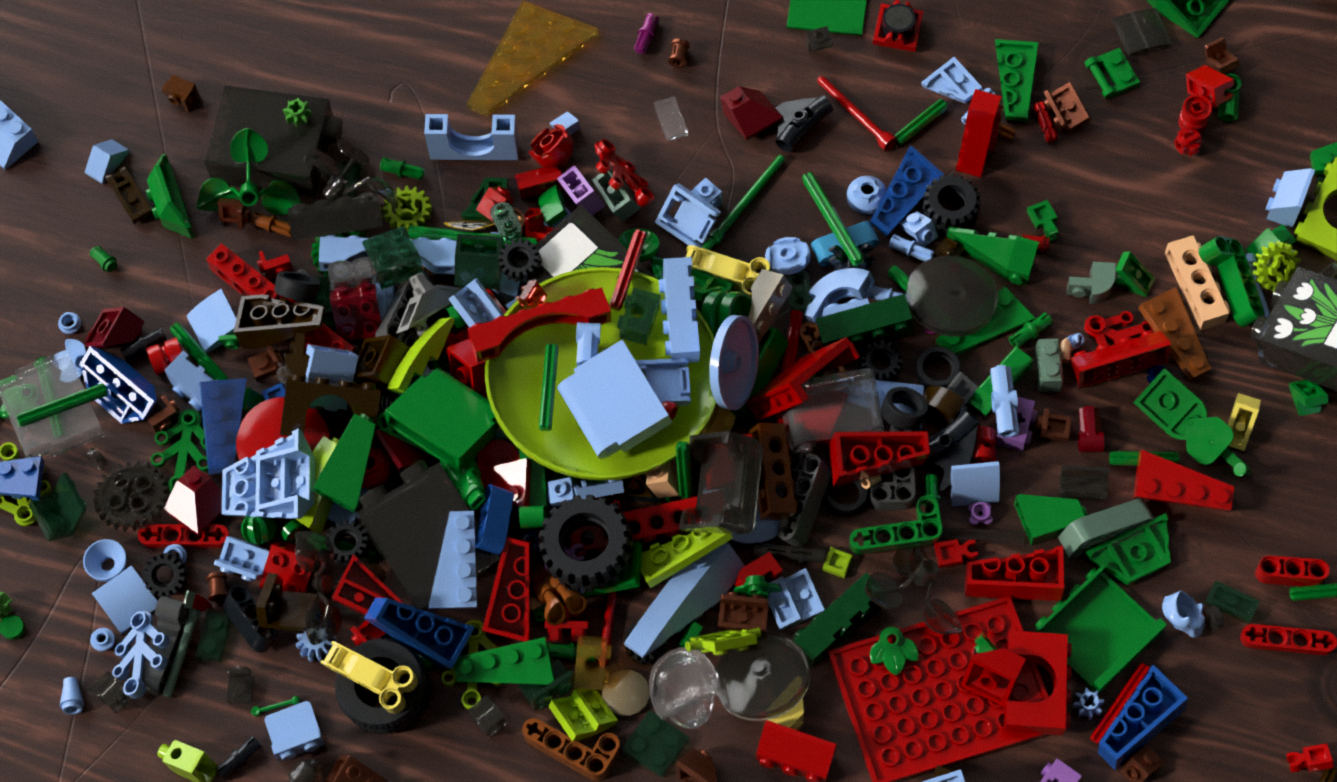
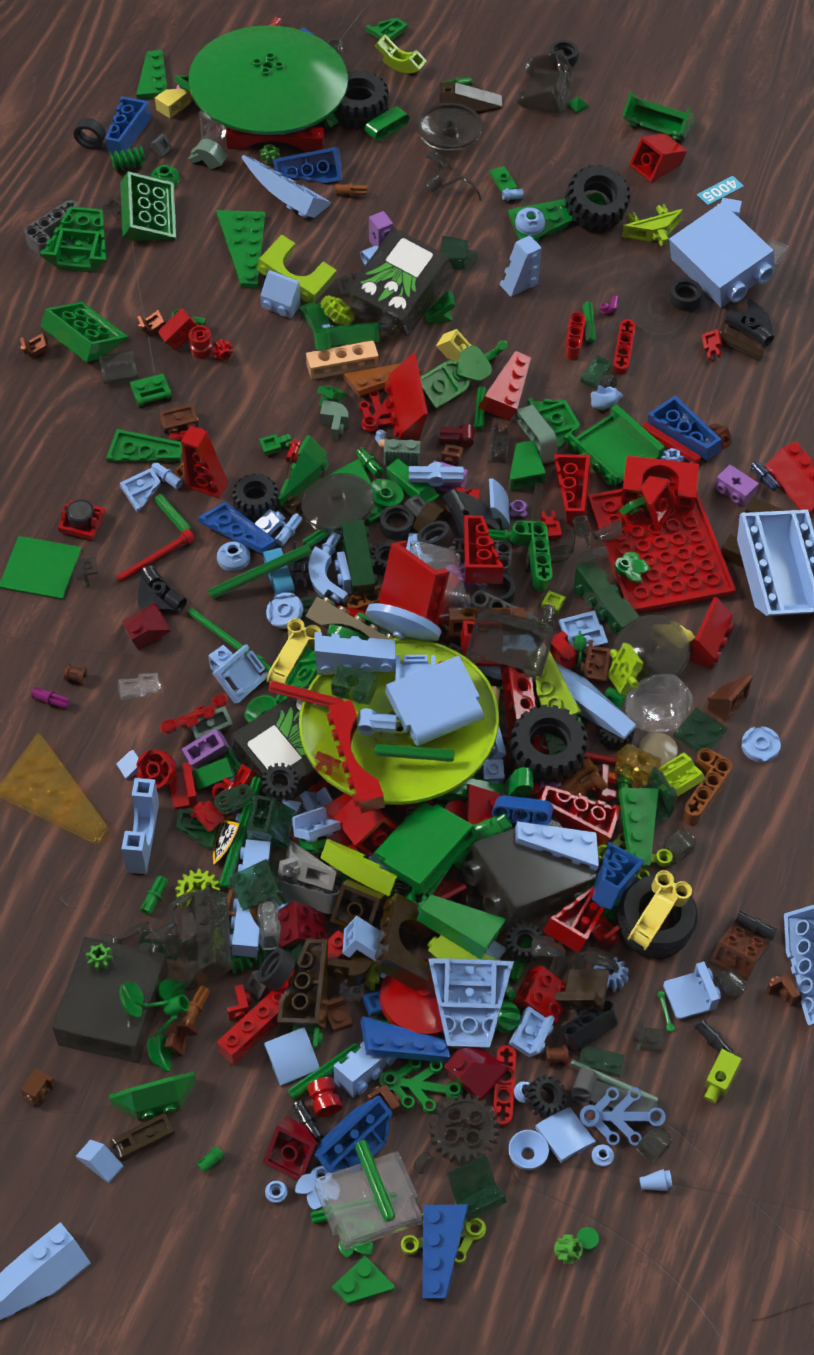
camera: 90 degrees left, 10 degrees down
(684, 469) = (482, 664): green axle -> none
(985, 342) = (387, 492): none -> green dish

